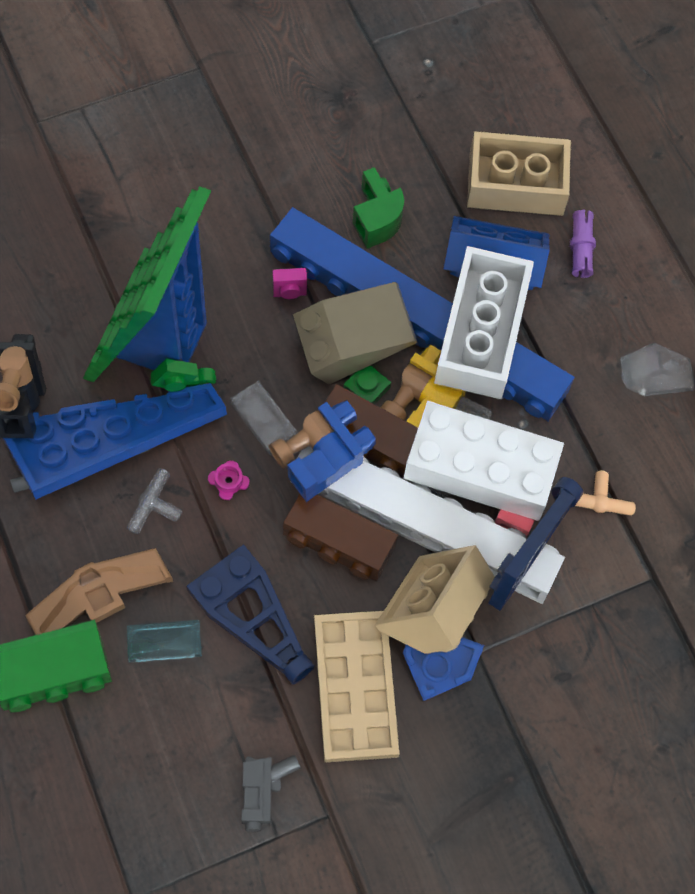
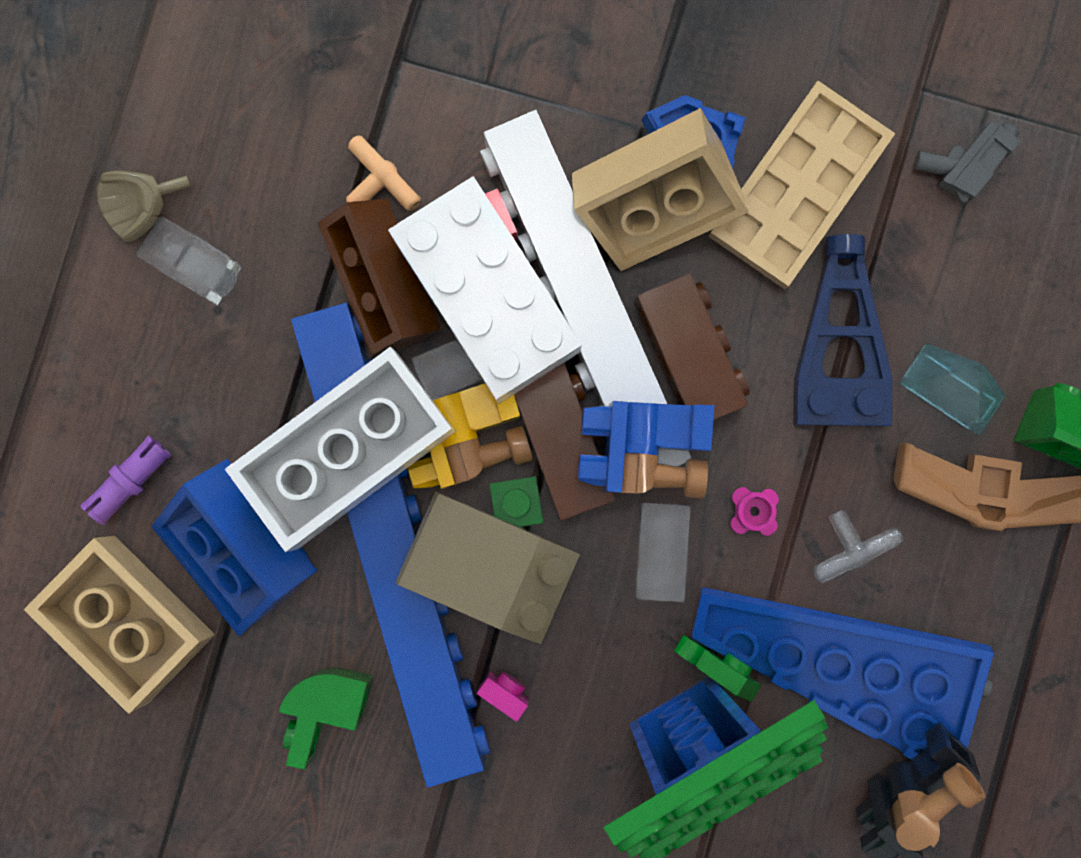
camera: 135 degrees left, 20 degrees up
(513, 568) = (570, 136): dark blue plate -> none
(581, 443) = (377, 277): none -> reddish brown brick

